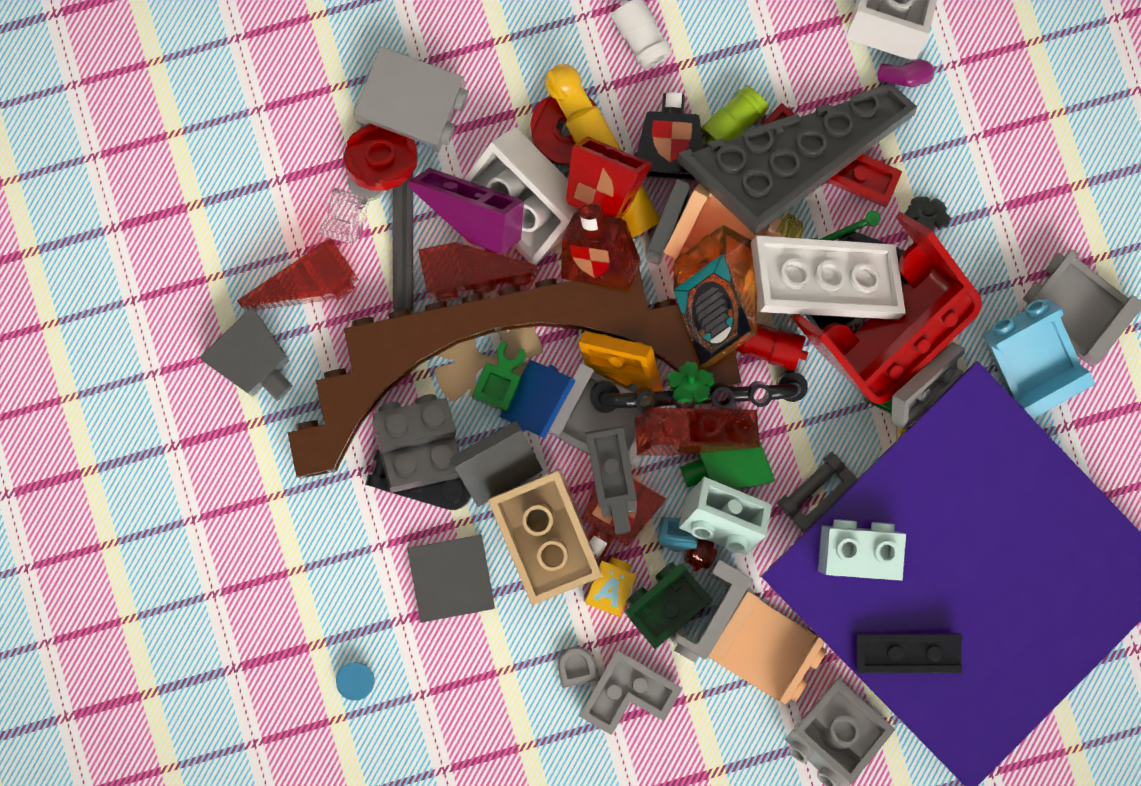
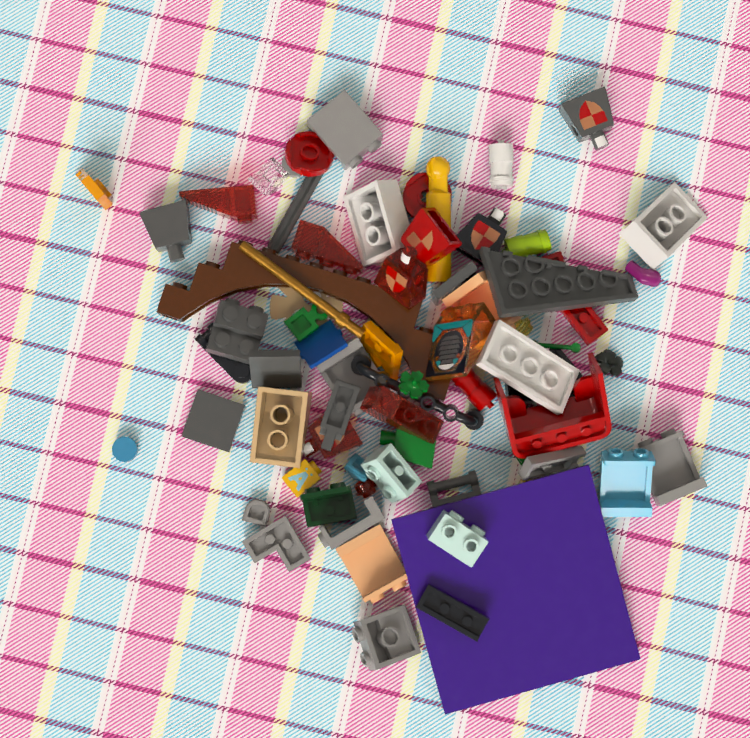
camera: 25 degrees right, 0 degrees up
(124, 358) = (96, 188): none -> light orange wing
(474, 211) = (346, 216): magenta slope -> none
(546, 350) = (341, 318): none -> pearl gold bar

